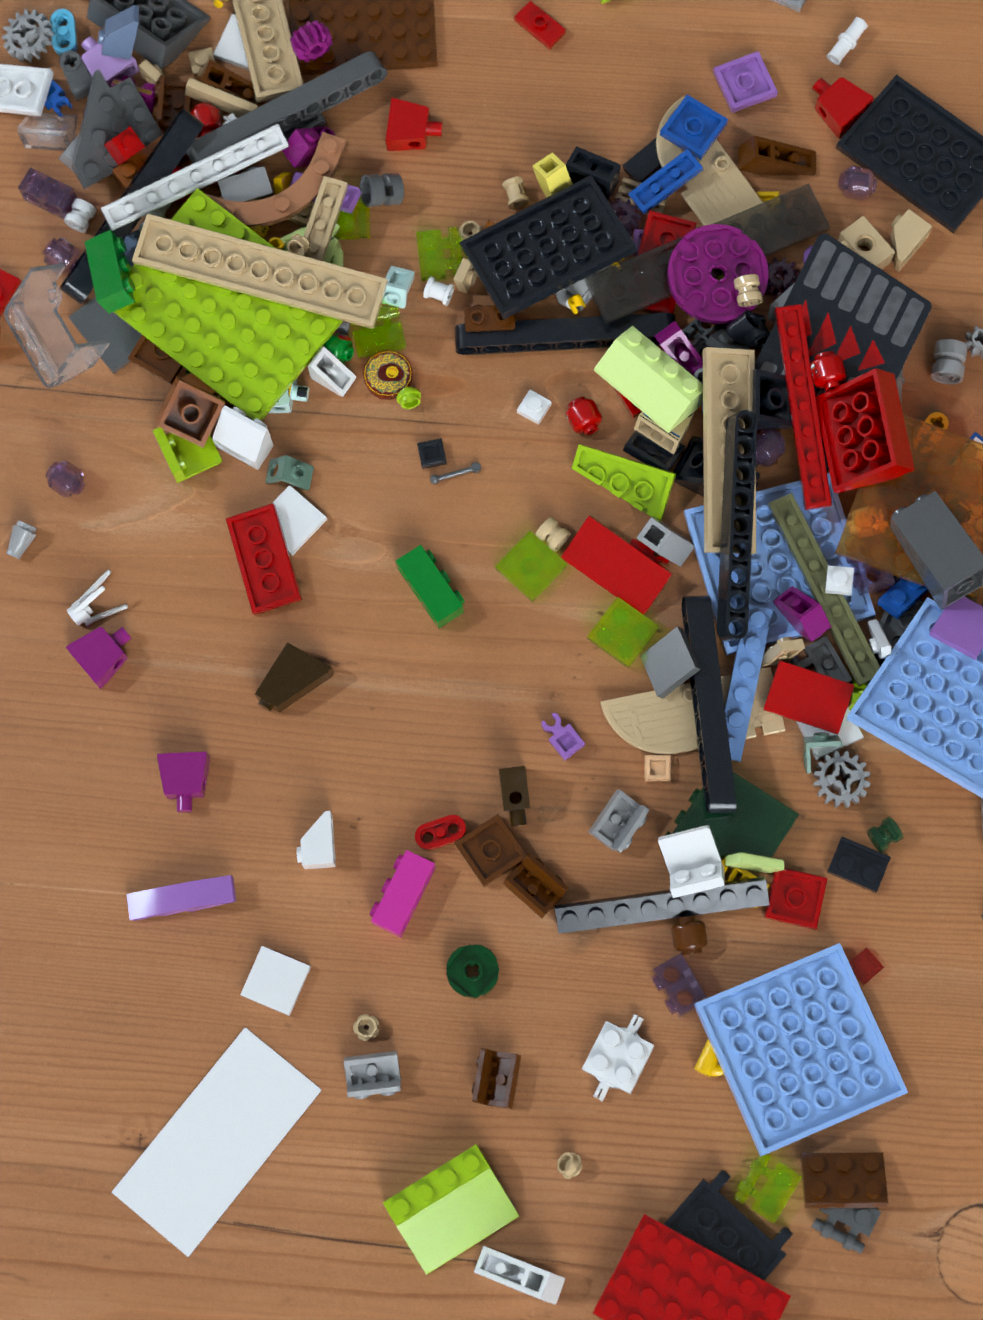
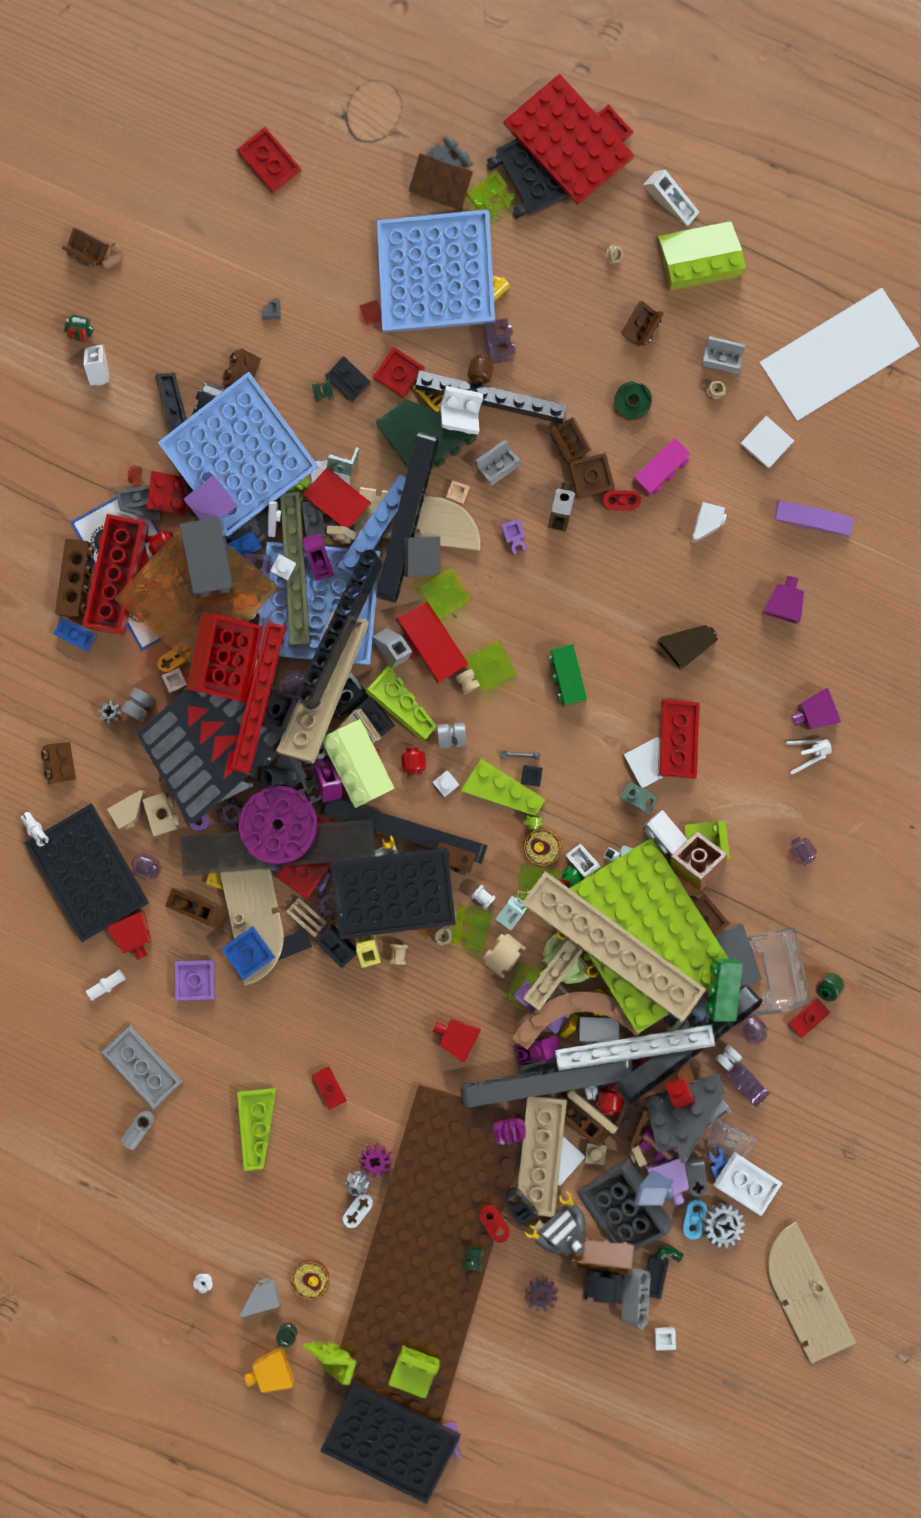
camera: 165 degrees left, 10 degrees up
(20, 539) = (847, 819): light grey cone -> none
(299, 245) = (577, 958): tan plate -> none
(382, 189) = (497, 990): dark grey wheel -> none
(388, 231) = (504, 955): none -> tan brick
(465, 276) = (460, 900): tan plate -> none
(468, 425) = (498, 787): none -> lime wing
(548, 461) = (451, 735): none -> light grey wheel
(618, 1057) = (556, 311): white plate -> none
(665, 181) = (286, 917): blue plate -> none
(748, 292) = (262, 799): tan wheel -> none
(754, 862) = (420, 399): yellowish green tile -> none
(828, 370) = (230, 713): red head -> none
(843, 791) = (329, 436): light grey gear -> none
(918, 406) = (174, 680): none -> white plate

